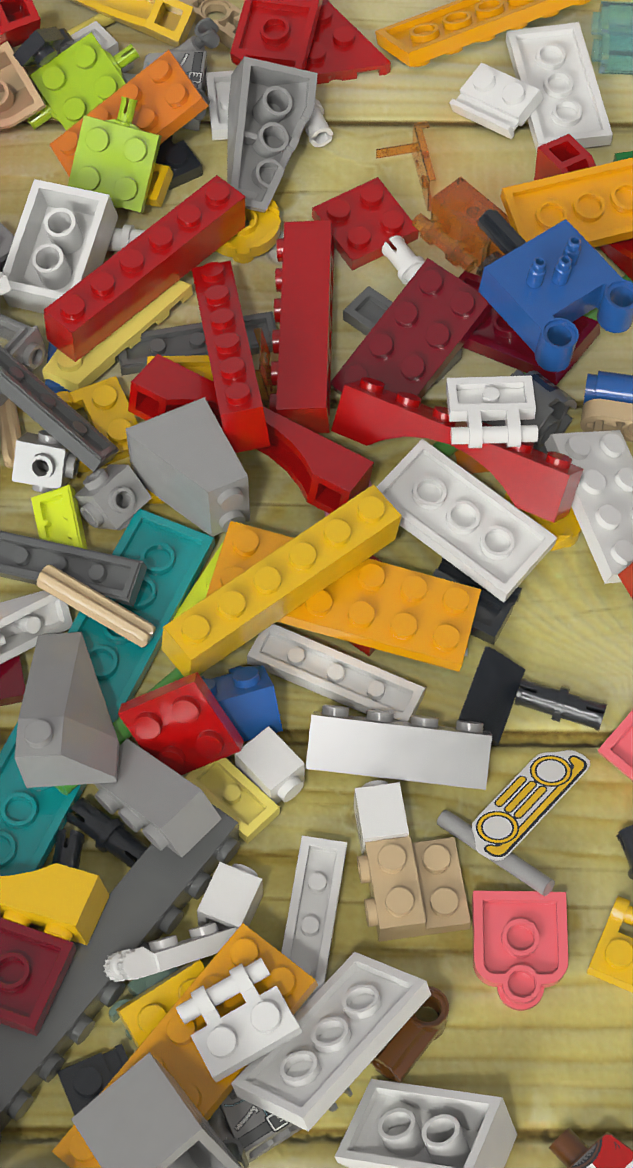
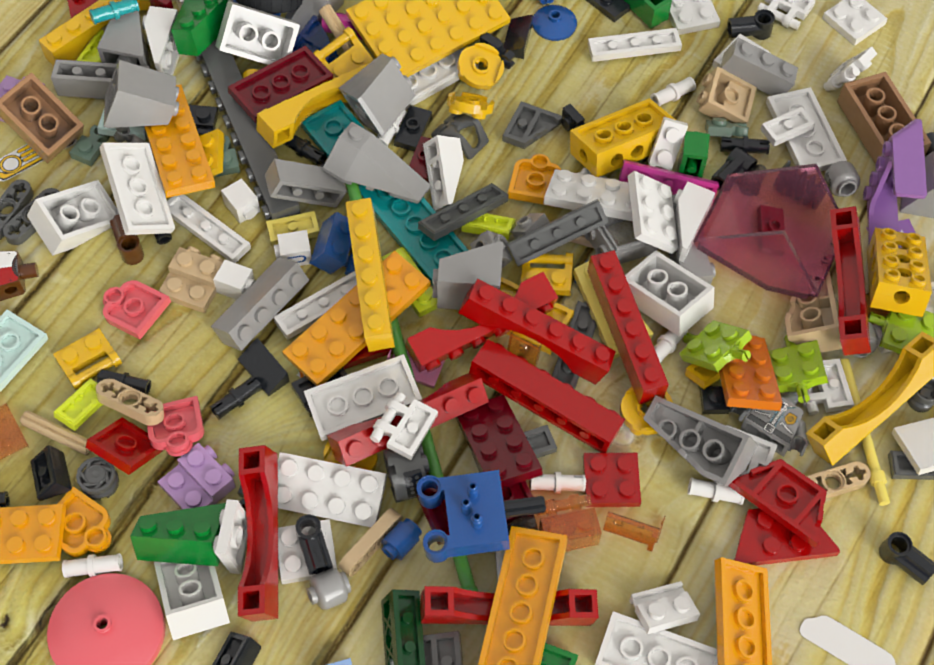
camera: 120 degrees right, 0 degrees up
(42, 46) = (826, 344): black plate -> none
(96, 605) = (426, 209): tan axle -> none
(167, 953) = (228, 156): white hinge -> none
(181, 725) = (330, 206): red plate -> none
(245, 1032) = (162, 149): white plate -> none
(512, 863) = (180, 318): light grey bar -> none
(526, 801) = (196, 349): sticker -> none

